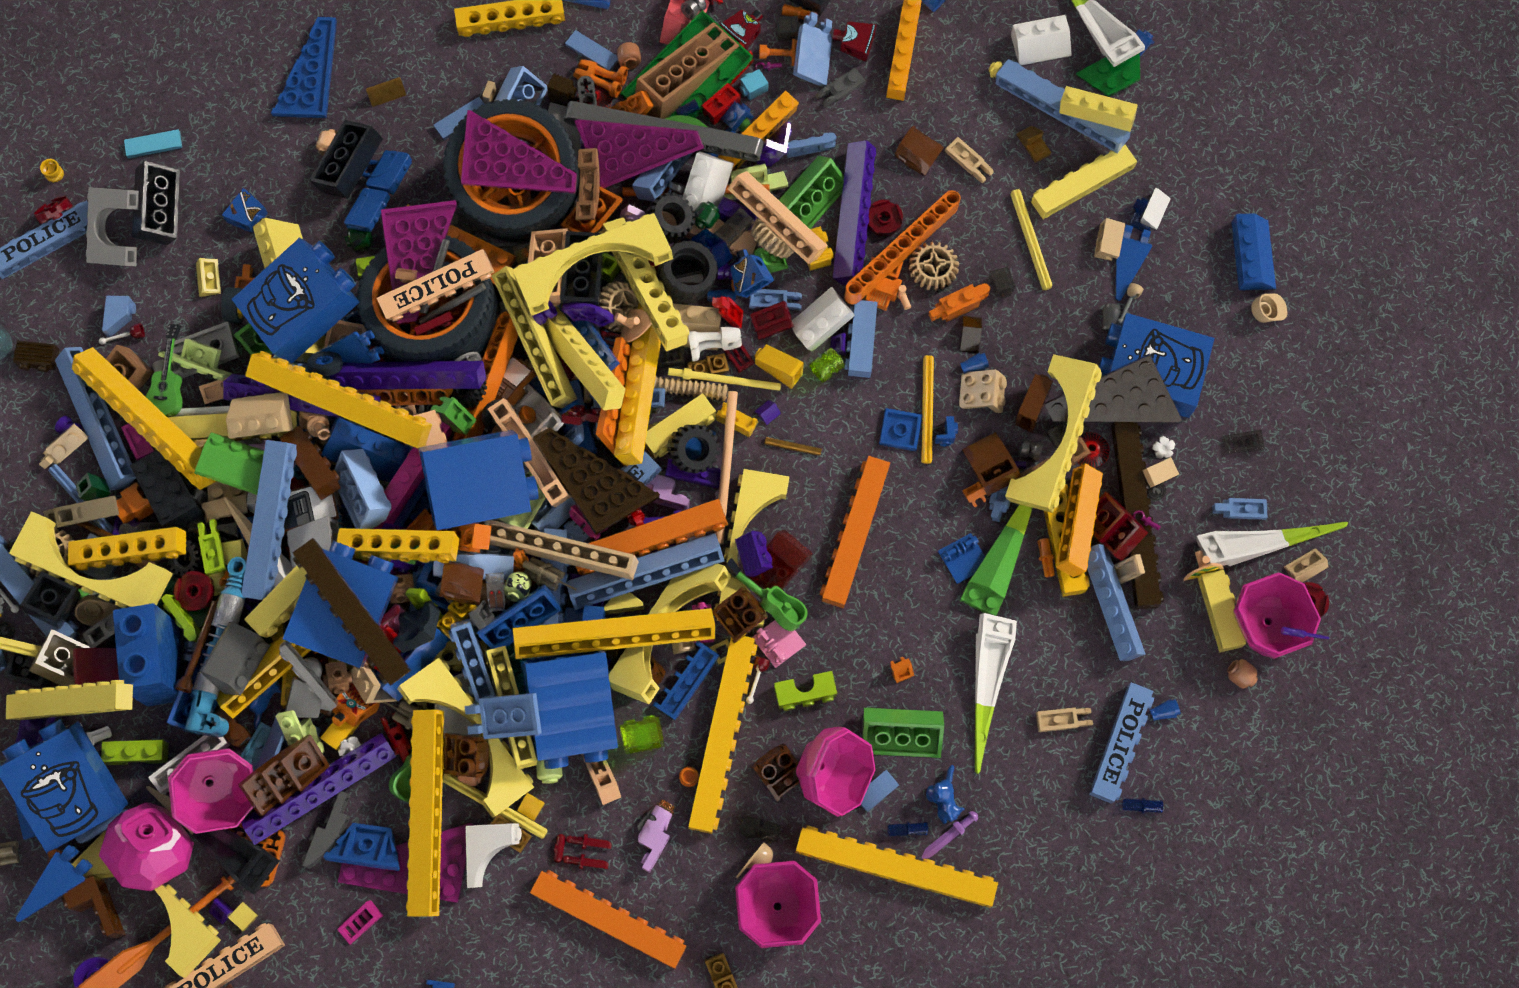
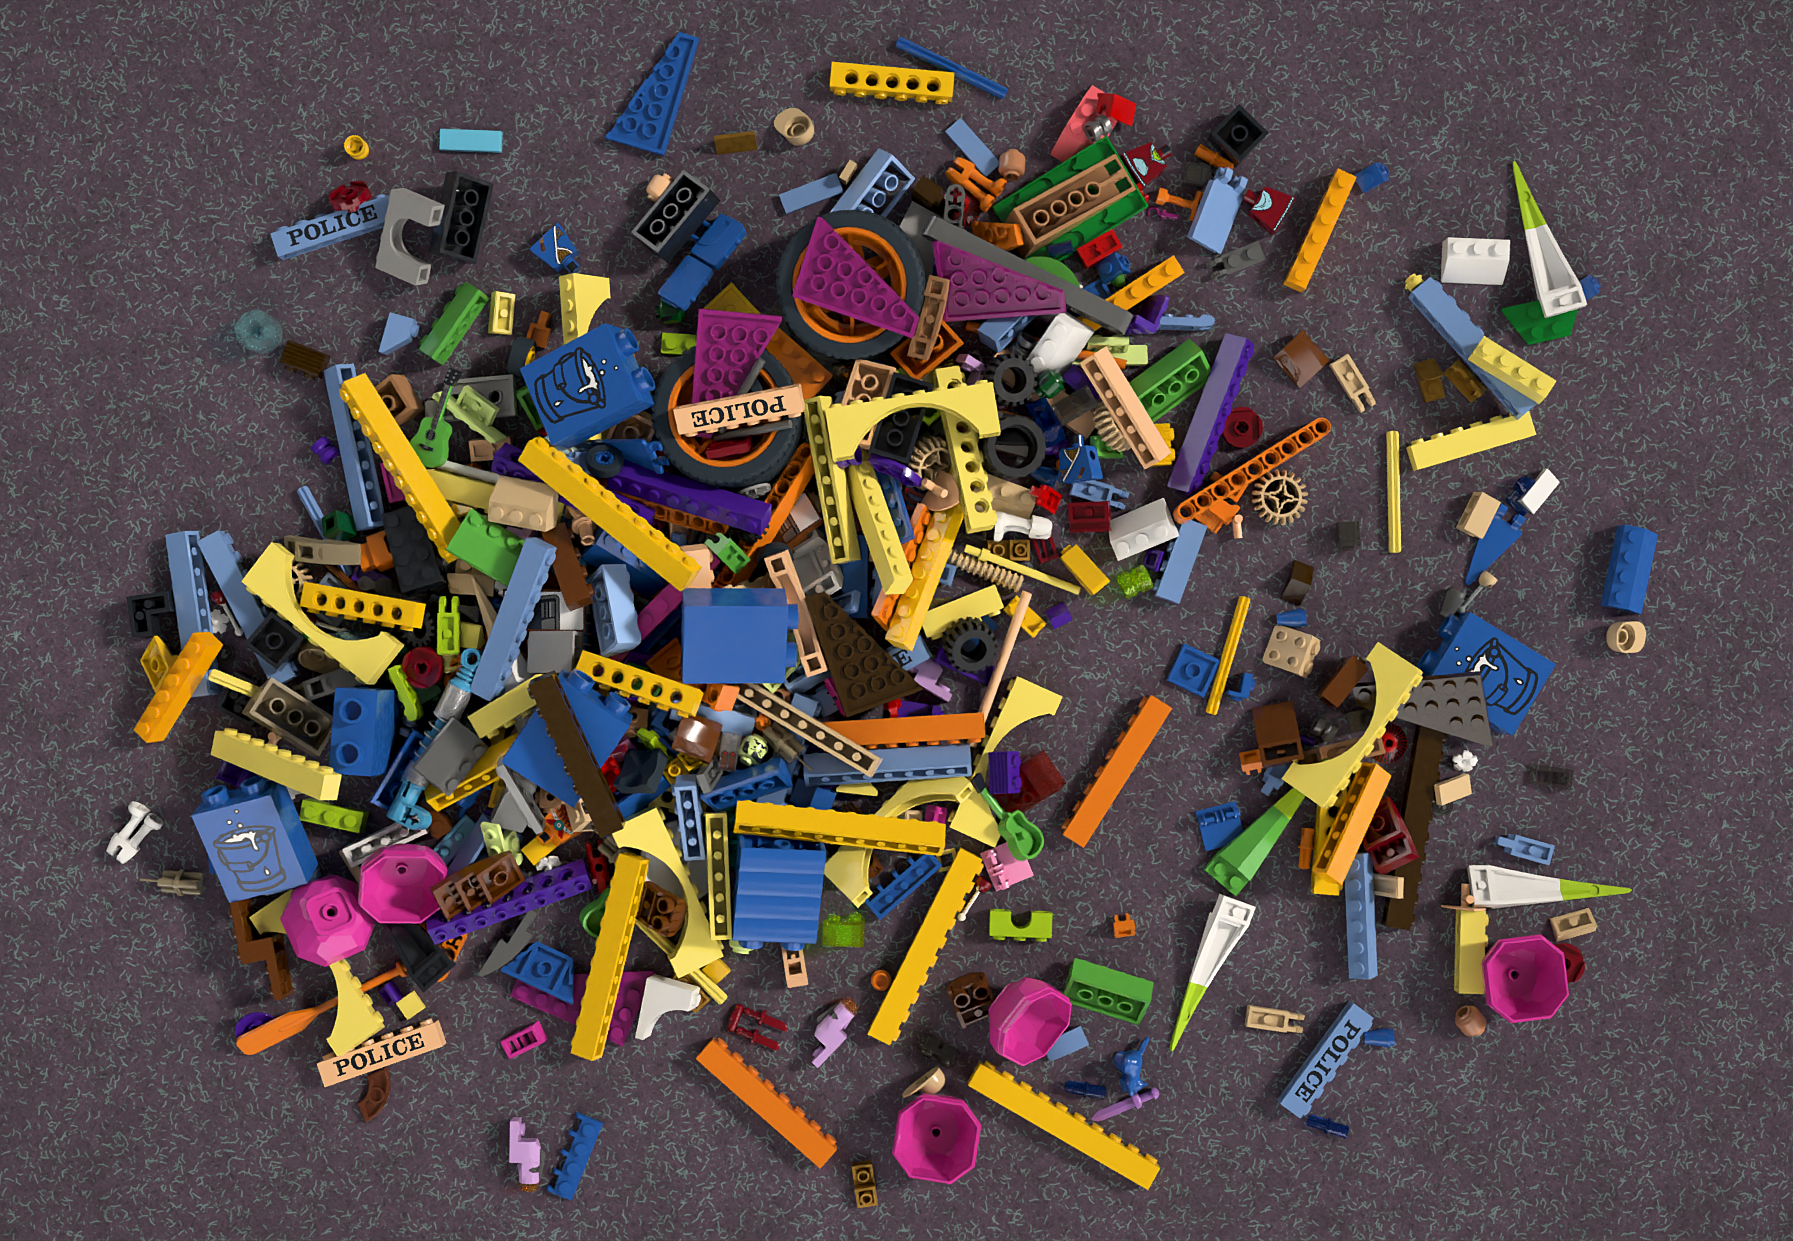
camera: 20 degrees right, 15 degrees up
(55, 881) = (233, 934): blue flag -> none
(63, 446) = (316, 470): tan hinge -> none
(95, 665) = (309, 729): dark red slope -> none
(136, 331) = (414, 358): hinge -> none
(167, 292) = (453, 323): none -> bright green slope
(185, 683) = (396, 767): reddish brown piece -> none
(406, 275) = (710, 389): medium nougat plate -> none
(435, 67) = (794, 126): none -> tan cap
(506, 716) = (709, 890): medium blue tile -> none
(527, 414) = (805, 559): orange plate -> none
(579, 414) = (860, 579): dark red plate -> none
(740, 613) = (974, 833): reddish brown slope -> none
(753, 84) = (1140, 234): medium azure brick -> none
(793, 446) = (1076, 660): pearl gold bar -> none
(959, 302) = (1295, 547): orange hinge -> none
(1063, 137) = (1464, 381): none -> pearl gold hinge
(1147, 521) = (1422, 841): magenta hand -> none
(1300, 633) = (1542, 1006): dark purple piece -> none

